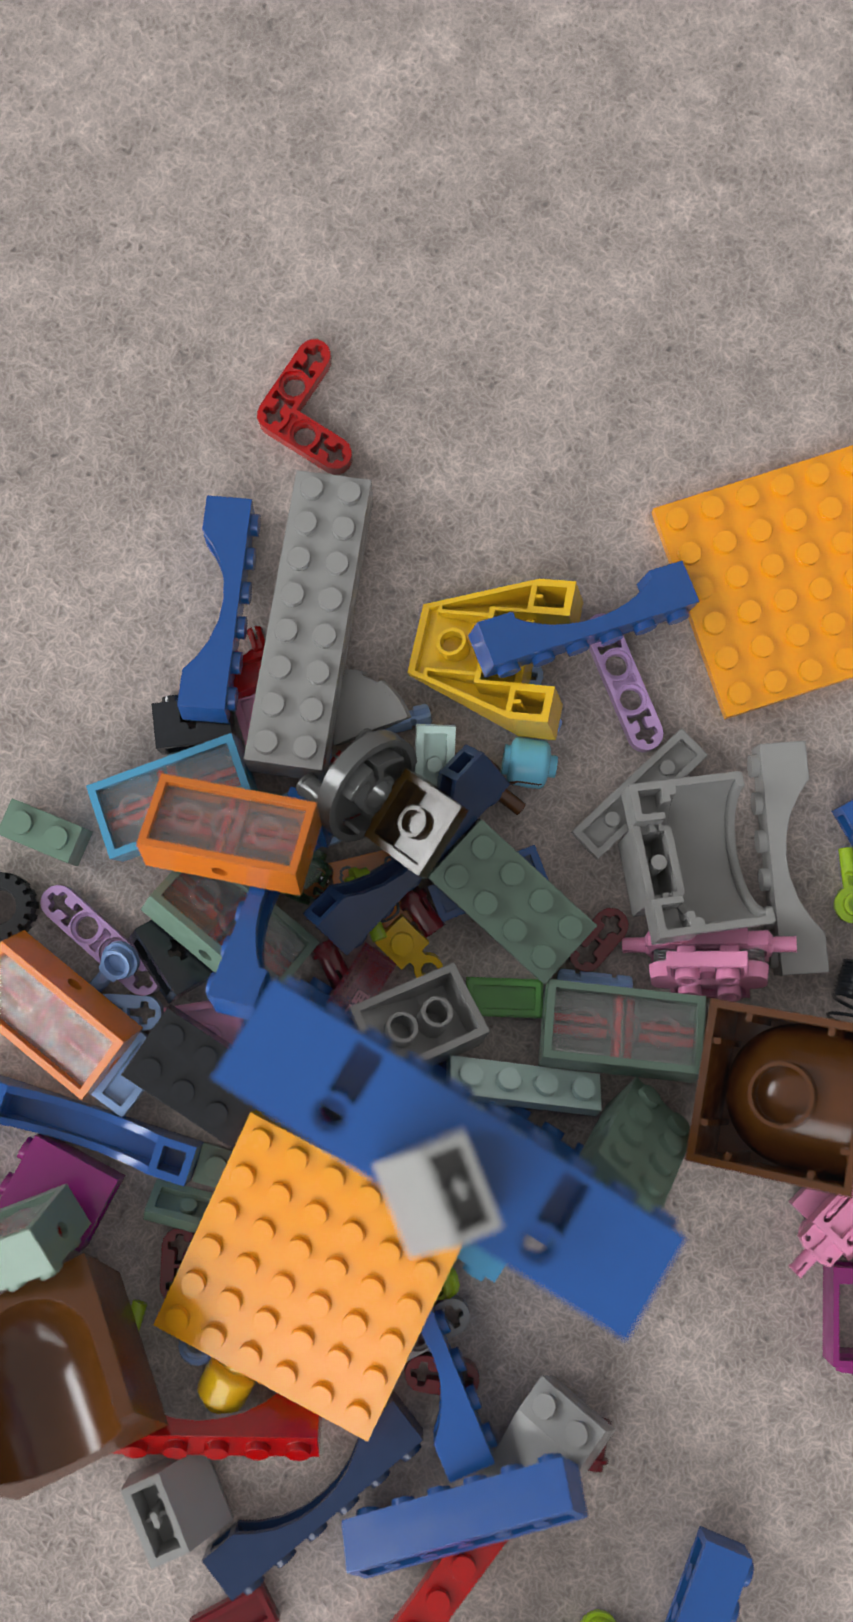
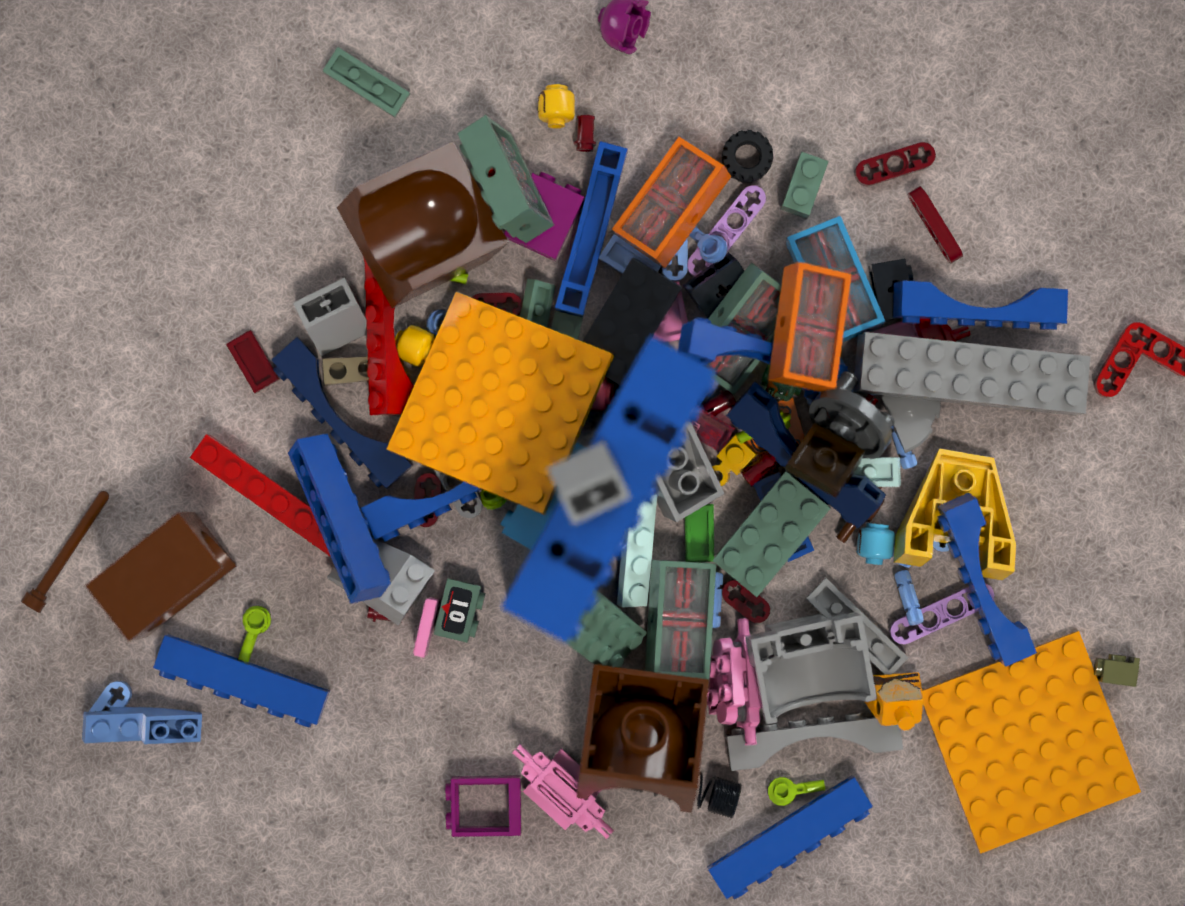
camera: 85 degrees right, 5 degrees up
(31, 683) = (917, 164): none -> dark red beam
(111, 663) = (935, 224): none -> dark red beam
(254, 1491) = (344, 370): none -> dark tan leg
(593, 1346) = (458, 610): none -> brick
(602, 723) = (909, 597): none -> light blue axle
(620, 1391) = (426, 627): none -> bright pink tile
(706, 460) = (1116, 670): none -> olive brick
(741, 742) = (897, 700): none -> light orange torso

